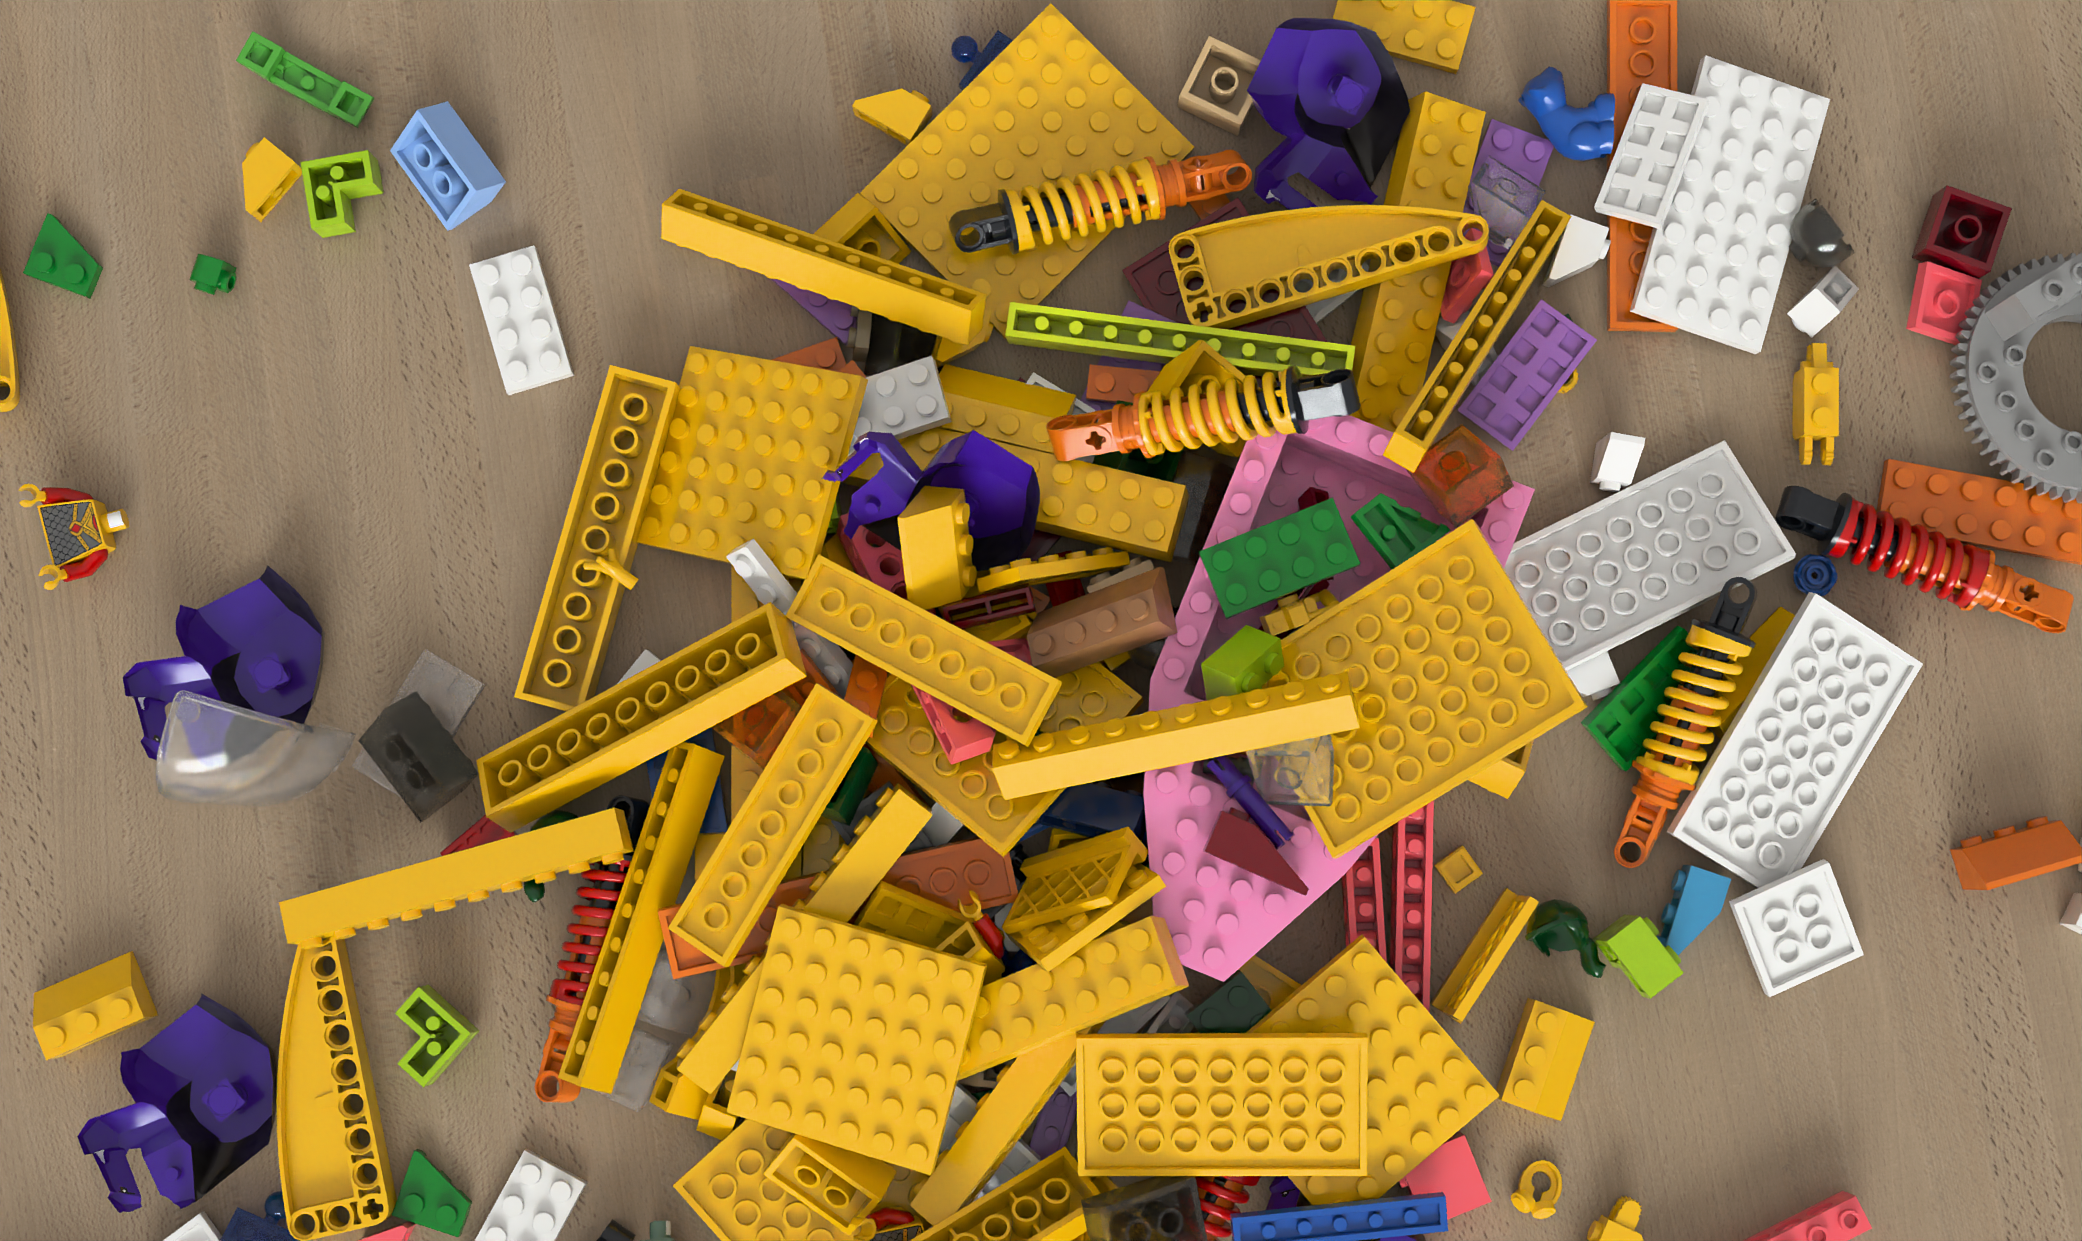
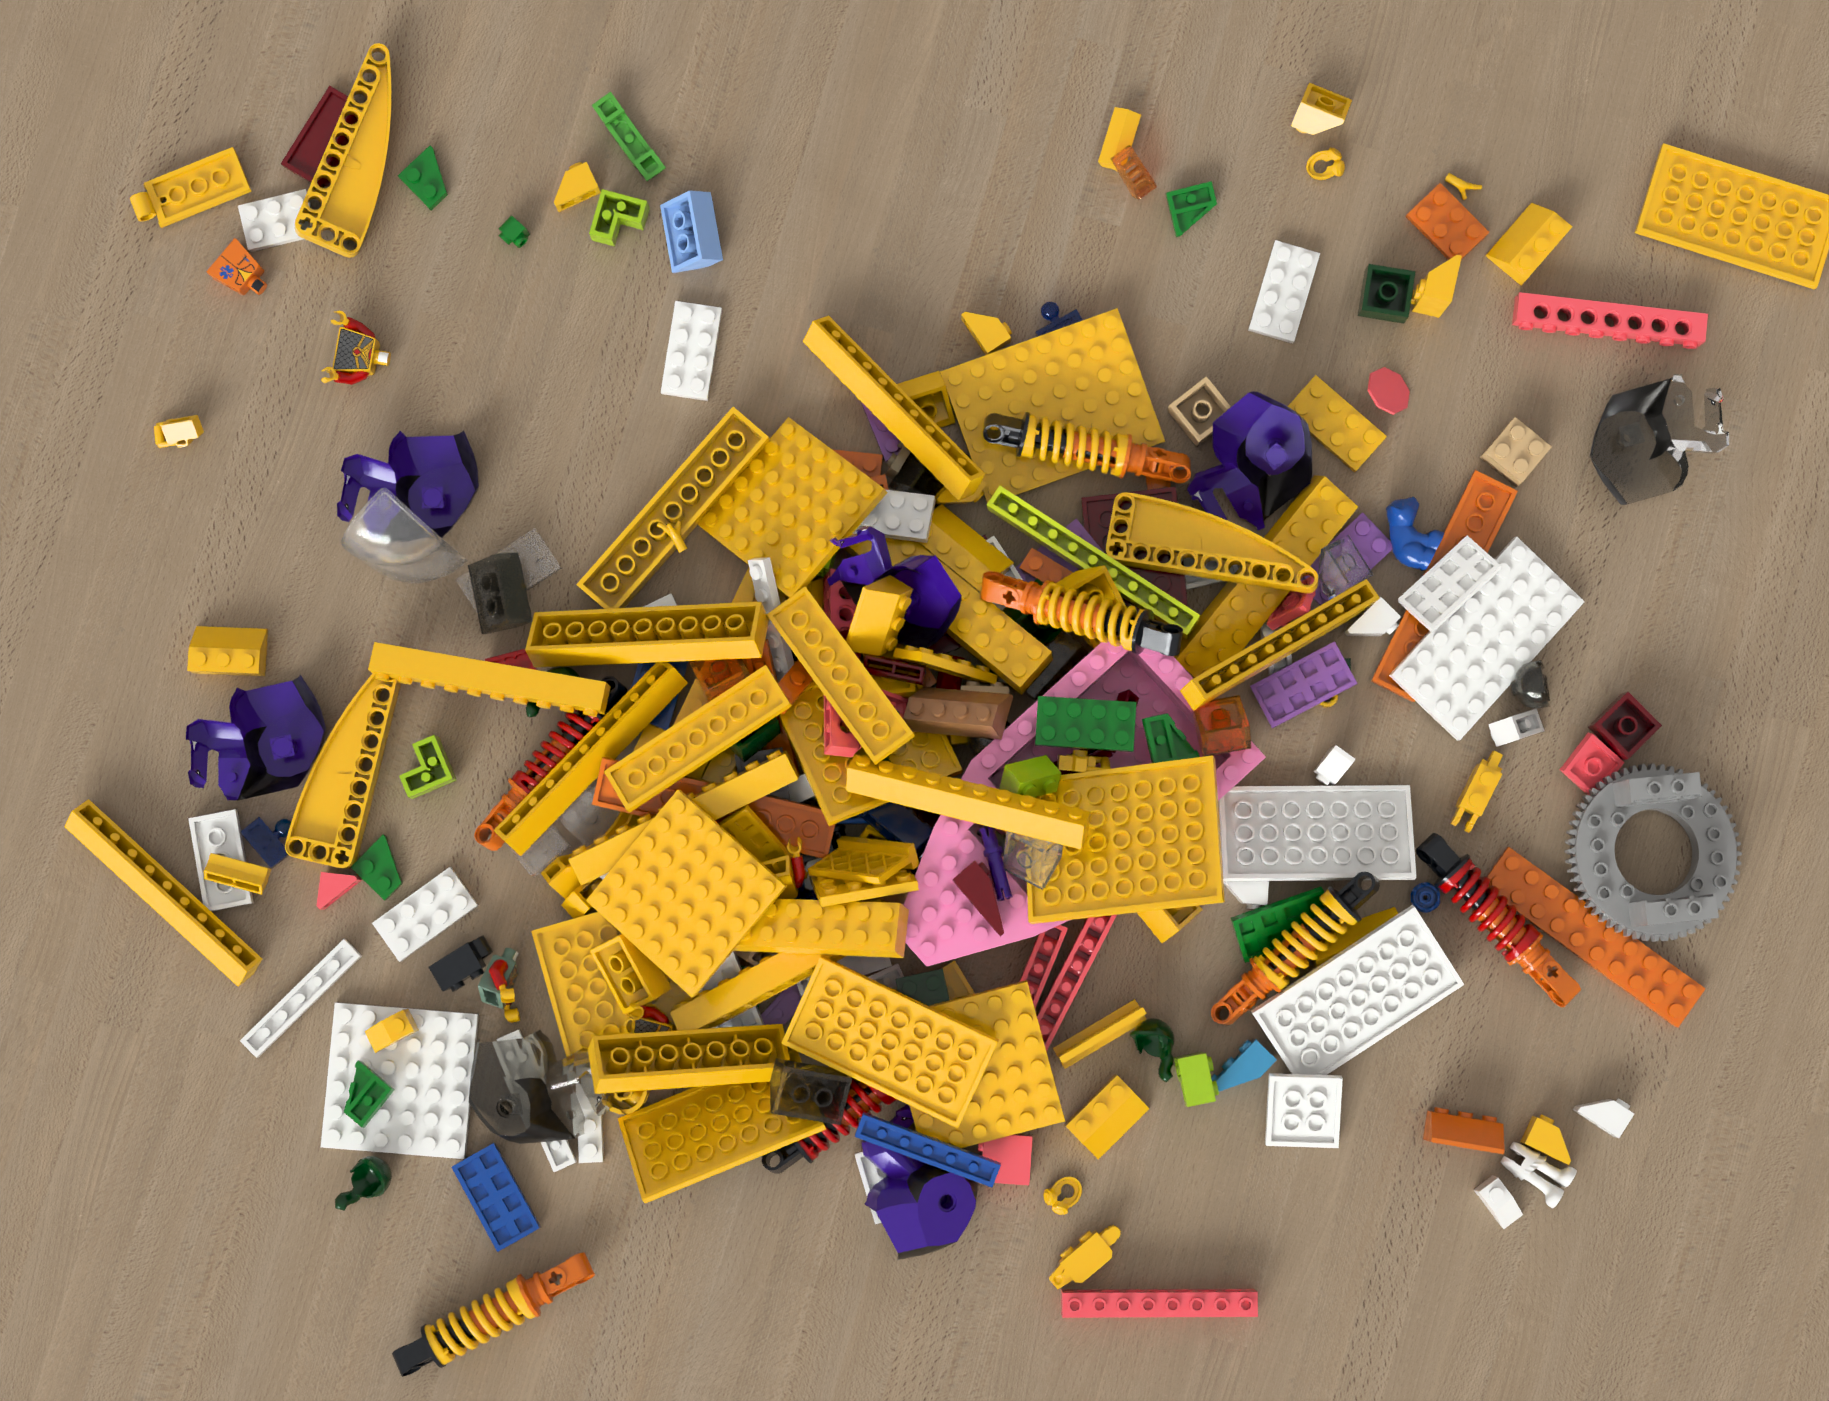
camera: 30 degrees right, 0 degrees up
(1458, 869) = (1110, 973): yellow tile -> none

